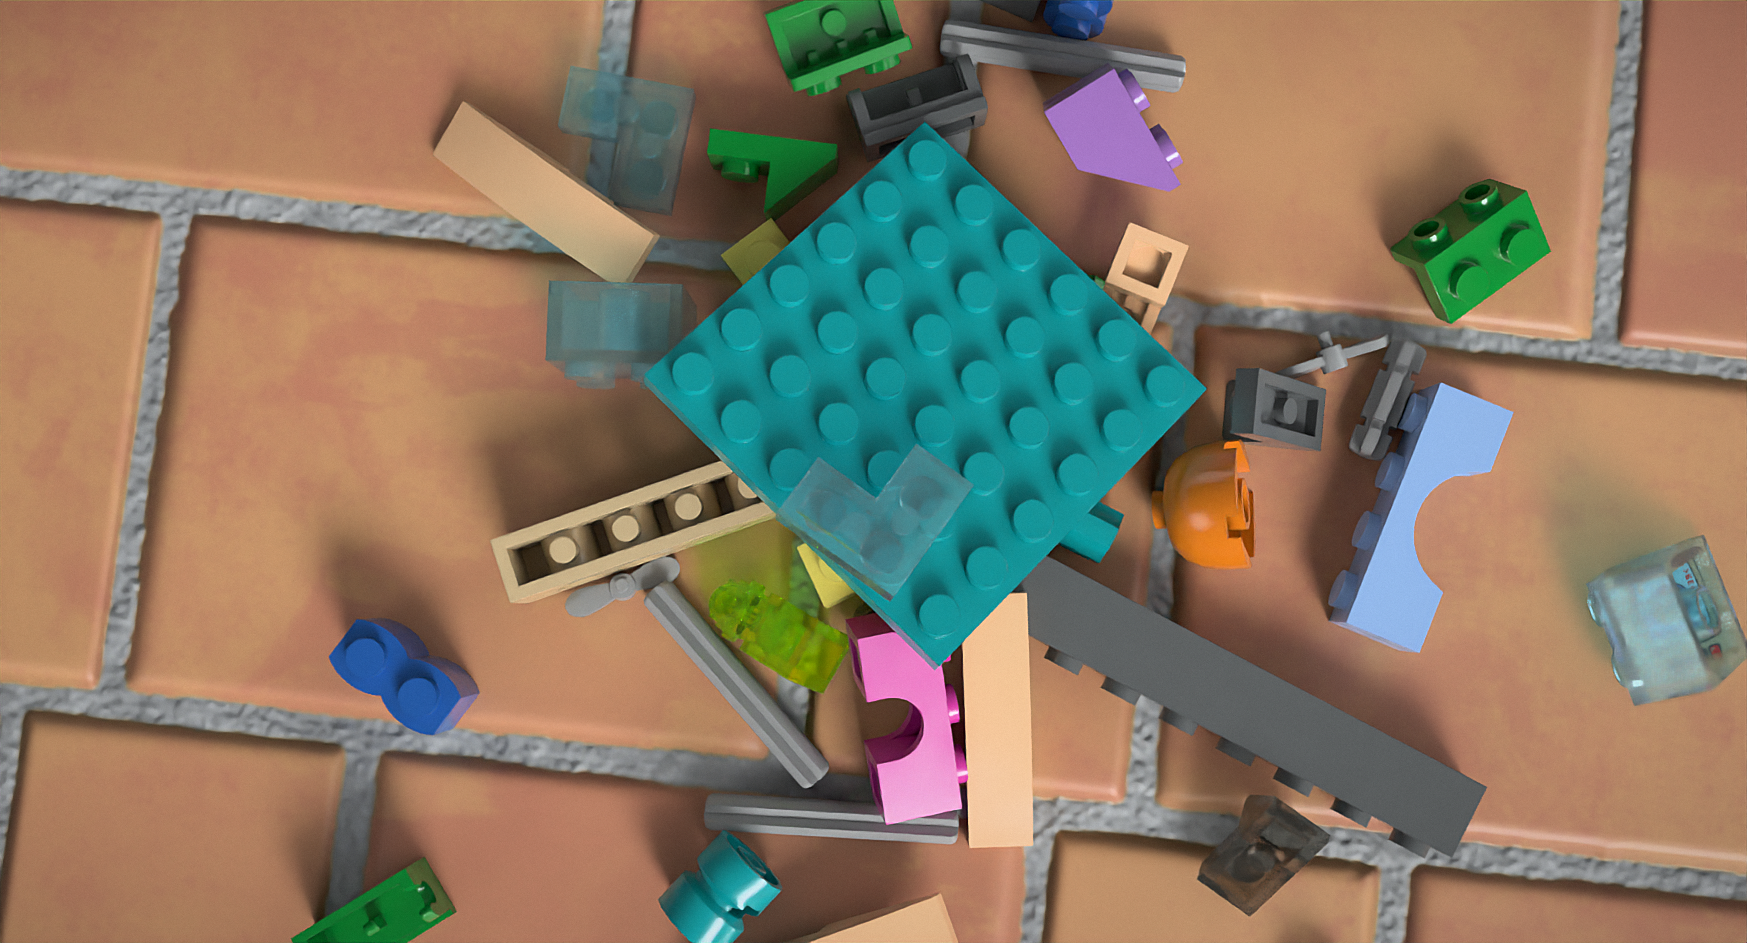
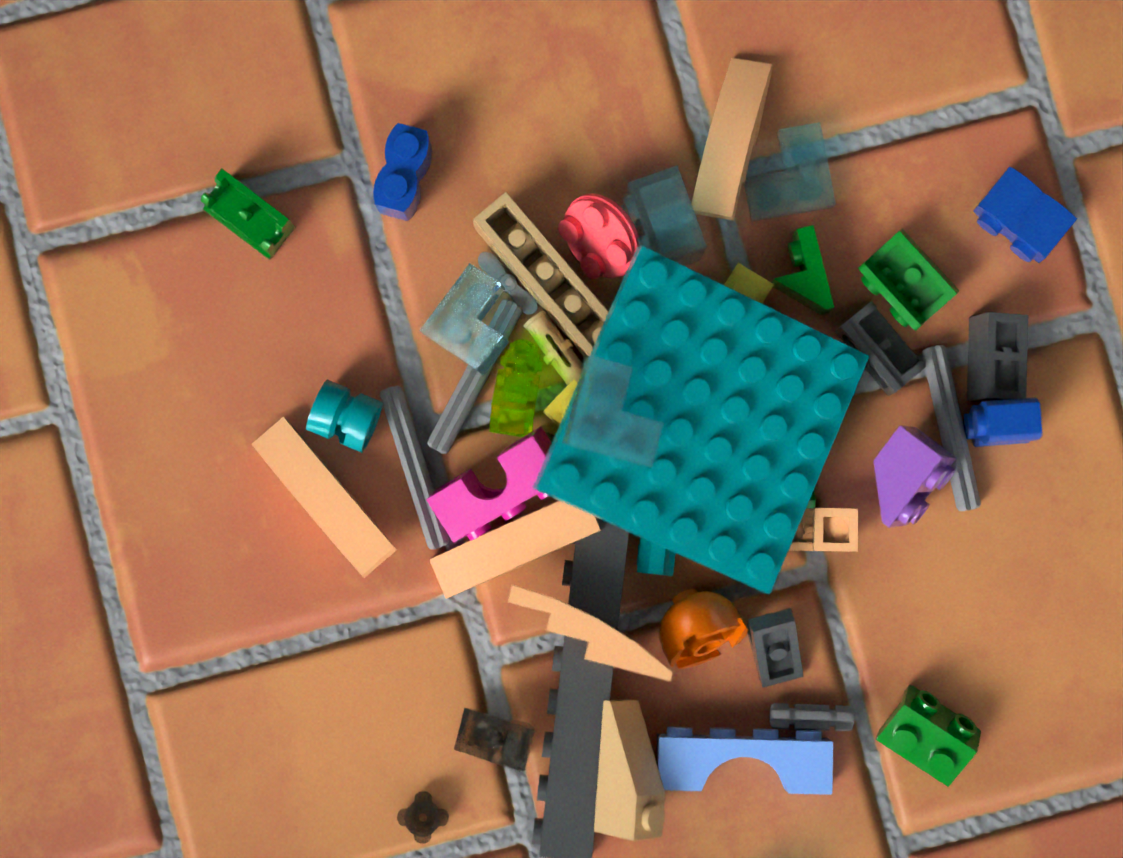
camera: 65 degrees right, 0 degrees up
(607, 431) = (599, 236): none -> coral piece
(650, 678) = (458, 320): none -> clear light blue plate
(705, 565) = (542, 327): none -> tan pin
(1188, 648) = (604, 642): none -> light nougat slope
(1334, 357) = (825, 672): light grey piece -> none
(1388, 687) = (629, 781): none -> tan slope

